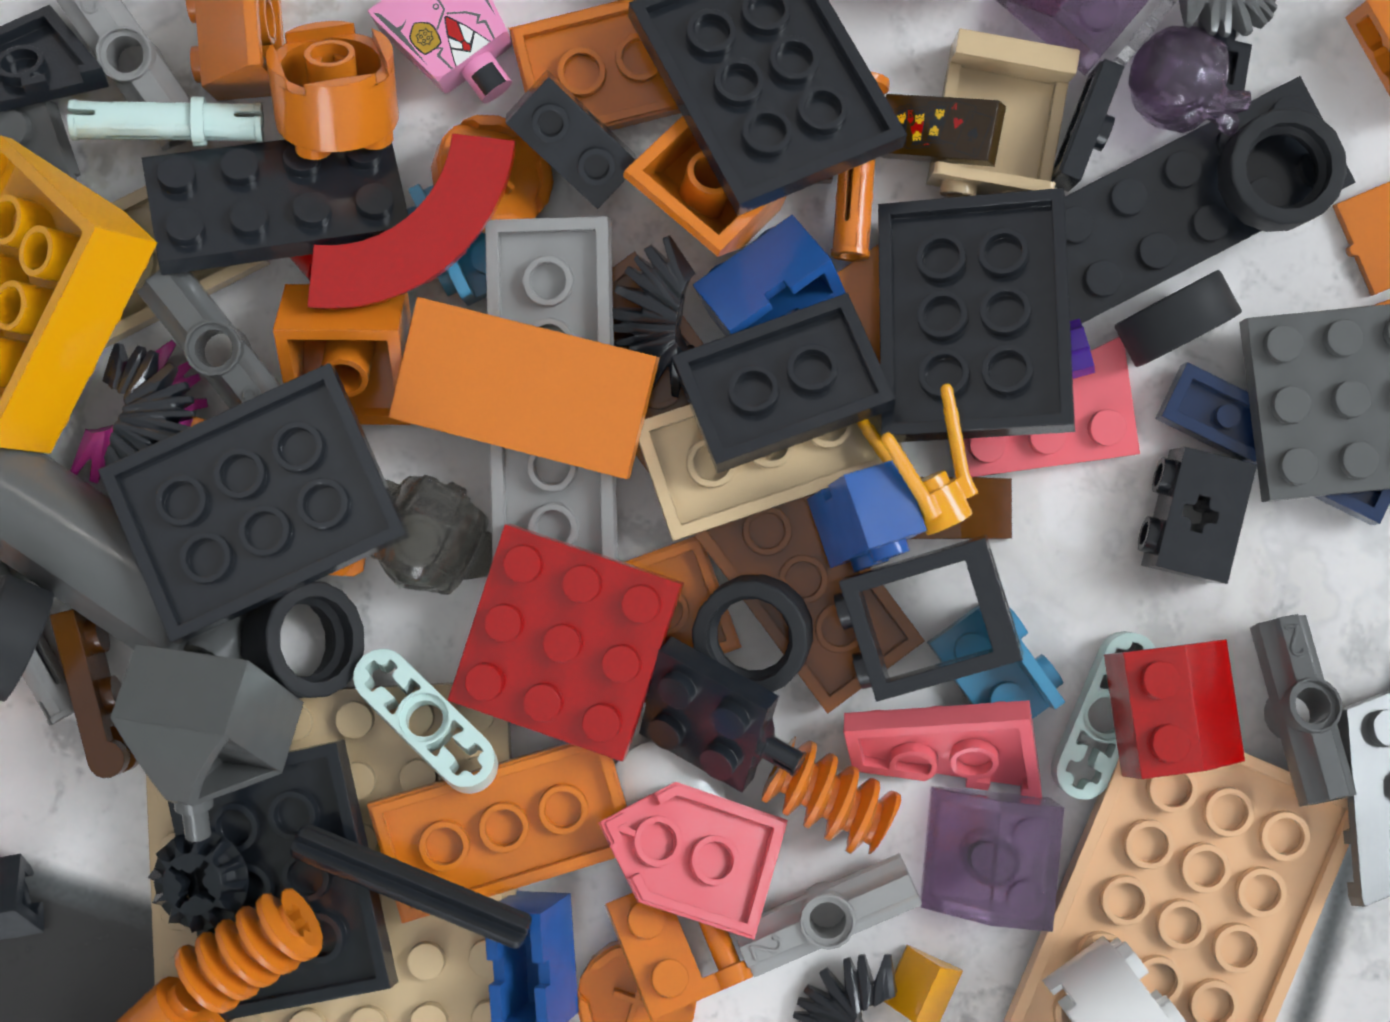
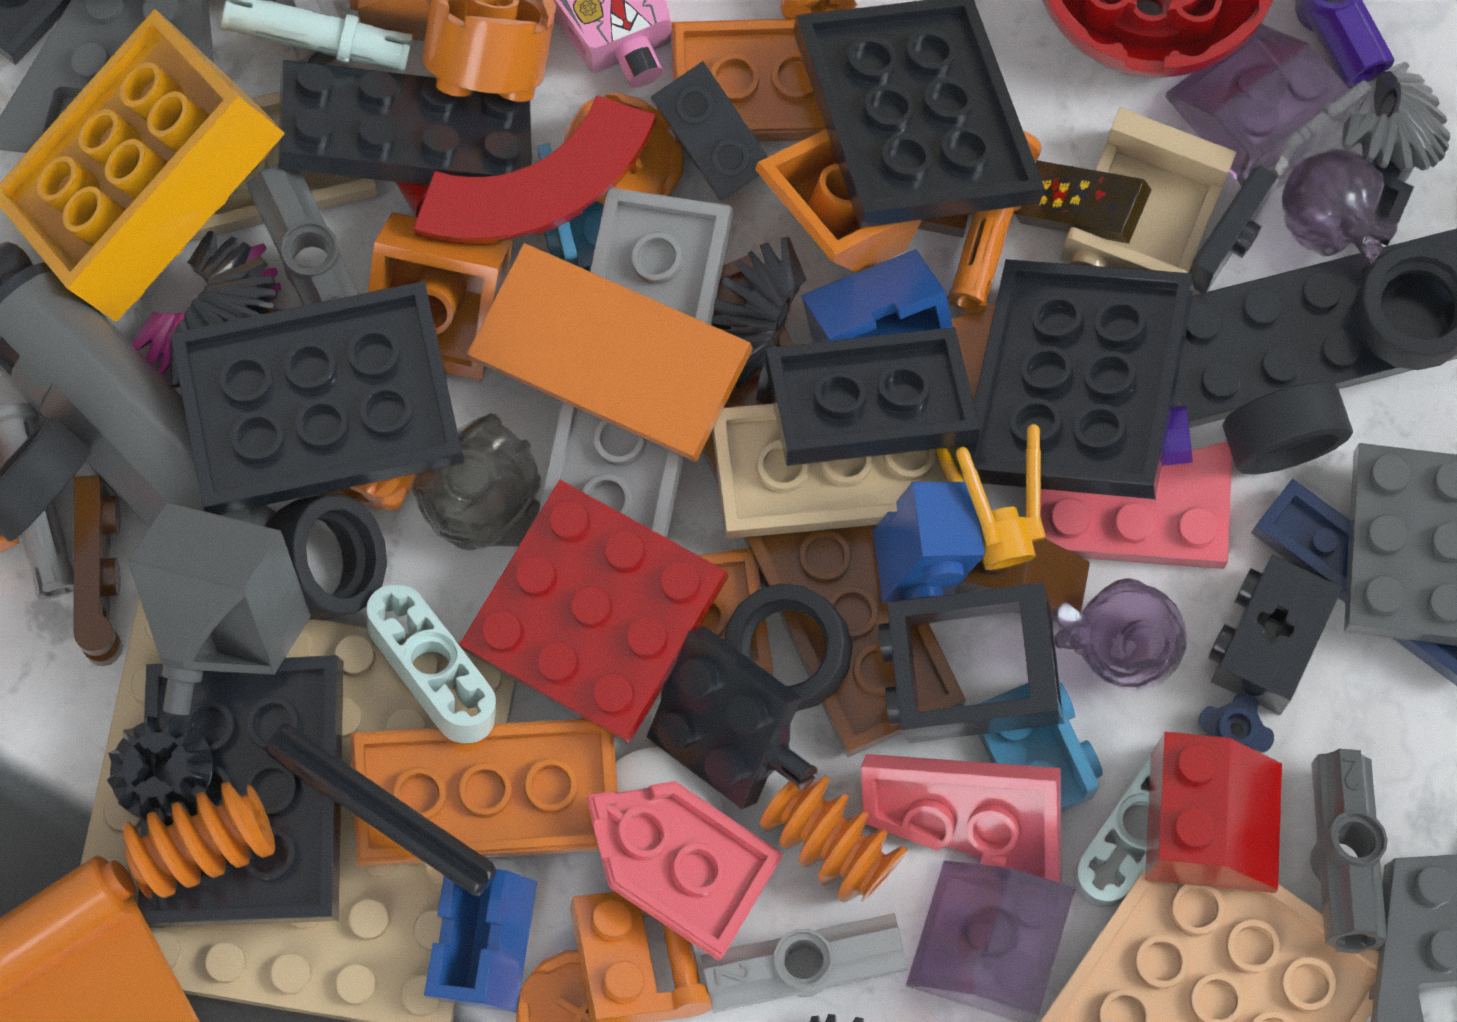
camera: 15 degrees right, 15 degrees down
(1062, 550) = (1126, 634): none -> clear purple hat
(1158, 610) = (1241, 712): none -> dark blue plate

